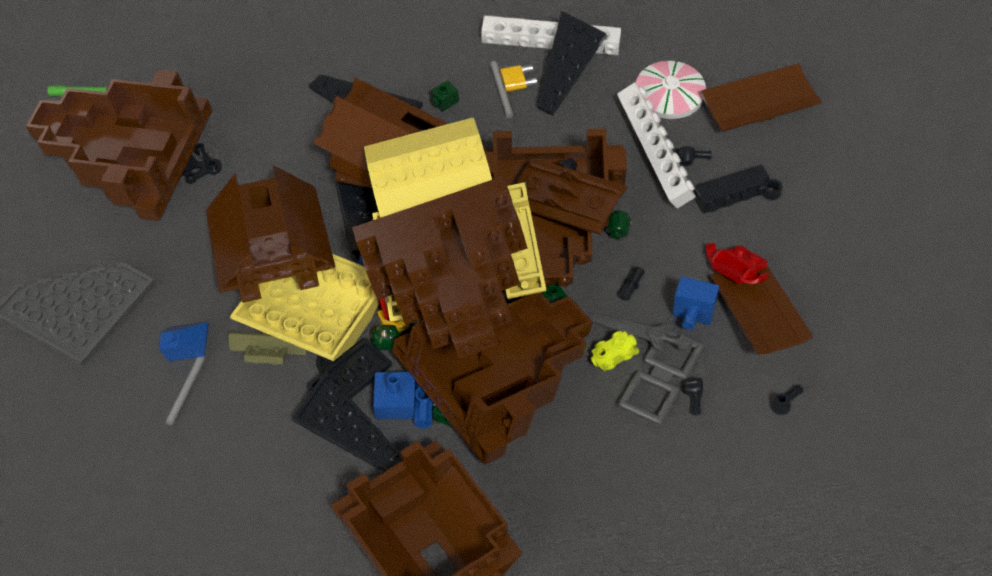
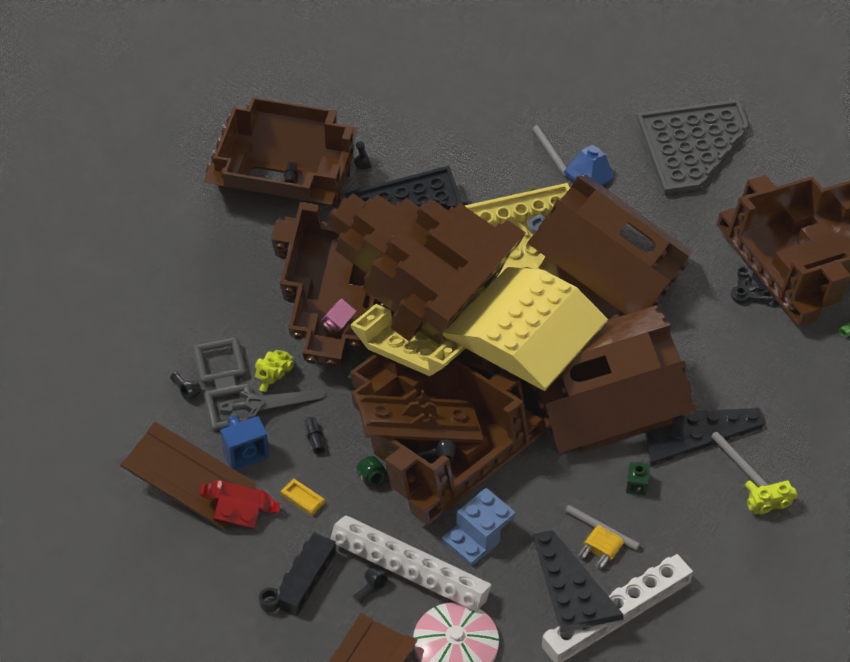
camera: 135 degrees right, 5 degrees down
(296, 298) = (534, 223): none -> sand blue tile
(367, 59) = (738, 459): none -> light grey bar
(380, 26) = (770, 497): none -> neon yellow brick
(424, 530) = (291, 173): none -> black axle
(531, 330) = (338, 316): none -> bright pink brick
(575, 125) = (478, 527): none -> medium blue bracket
(682, 247) = (302, 497): none -> yellow tile
(783, 408) = (113, 428): black bar -> none

